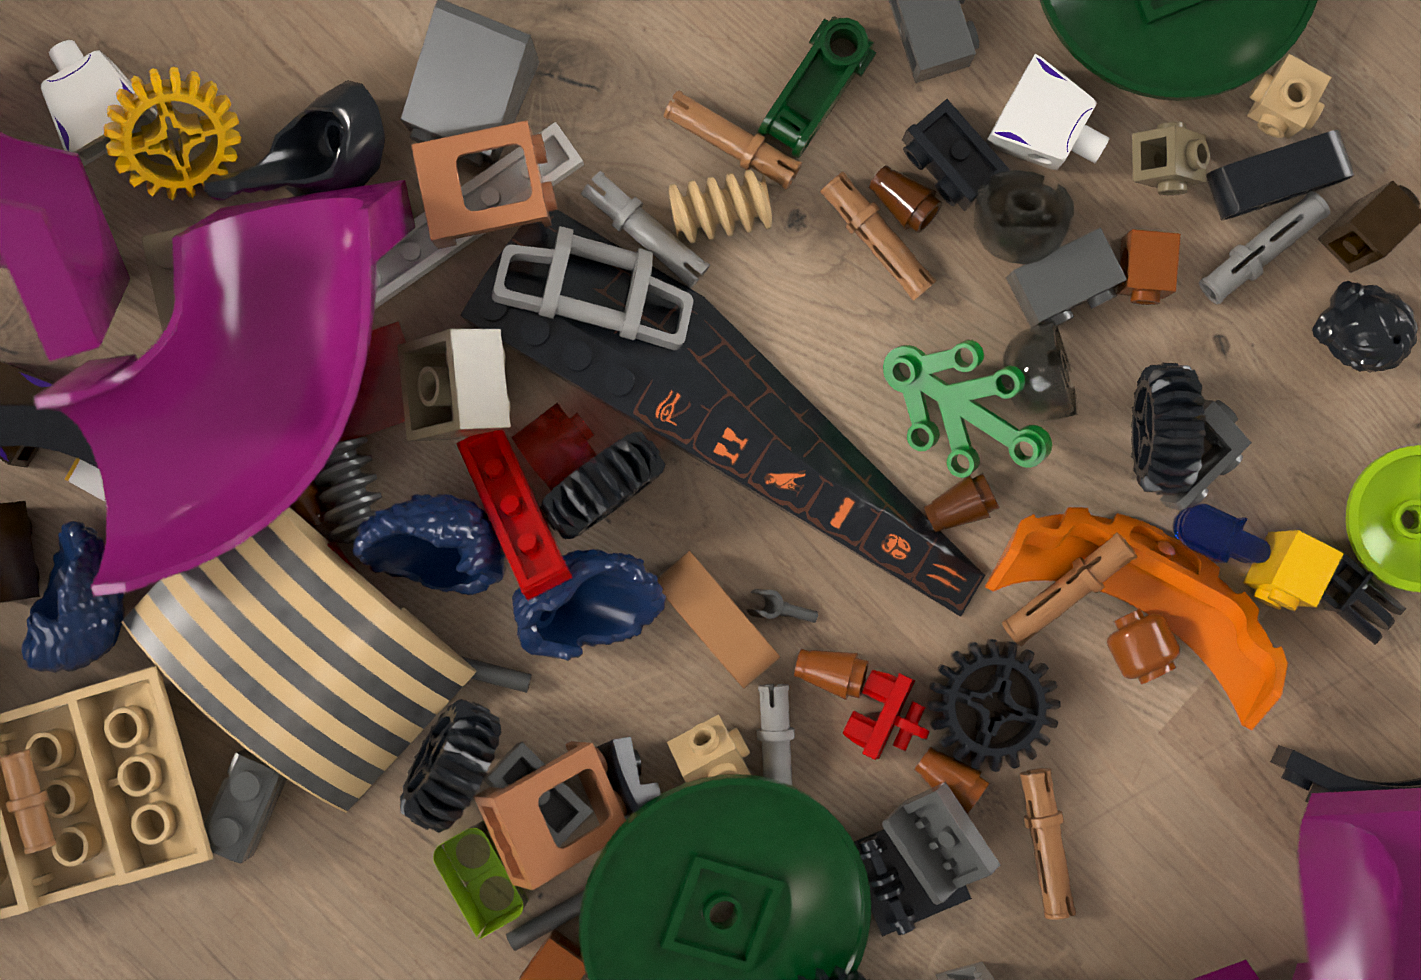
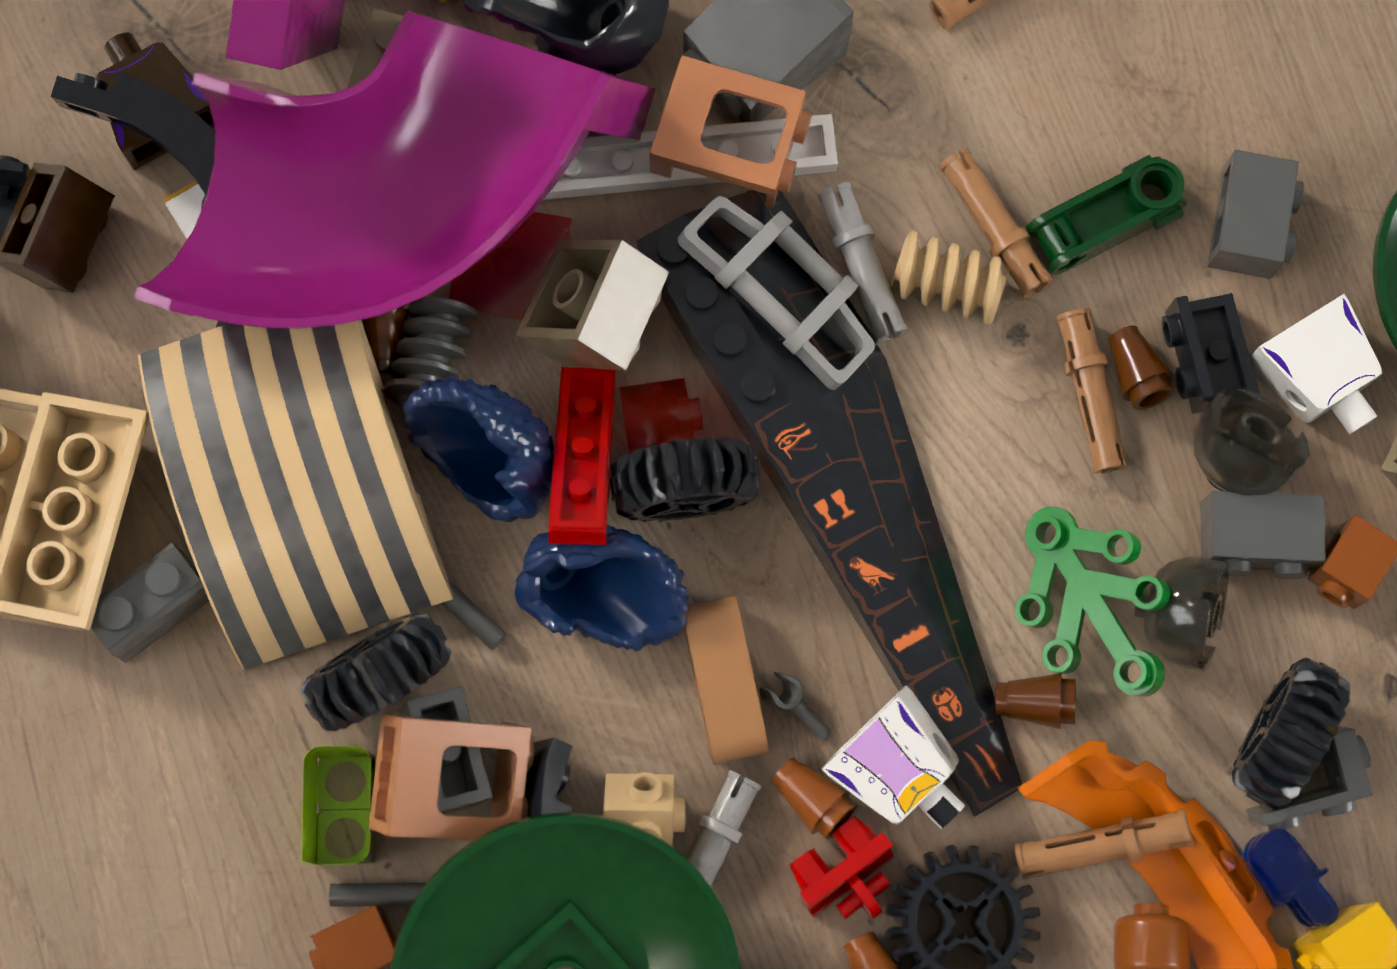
camera: 25 degrees right, 10 degrees down
(69, 623) = (103, 326): dark blue hair -> none
(883, 613) = (899, 763): none -> torso

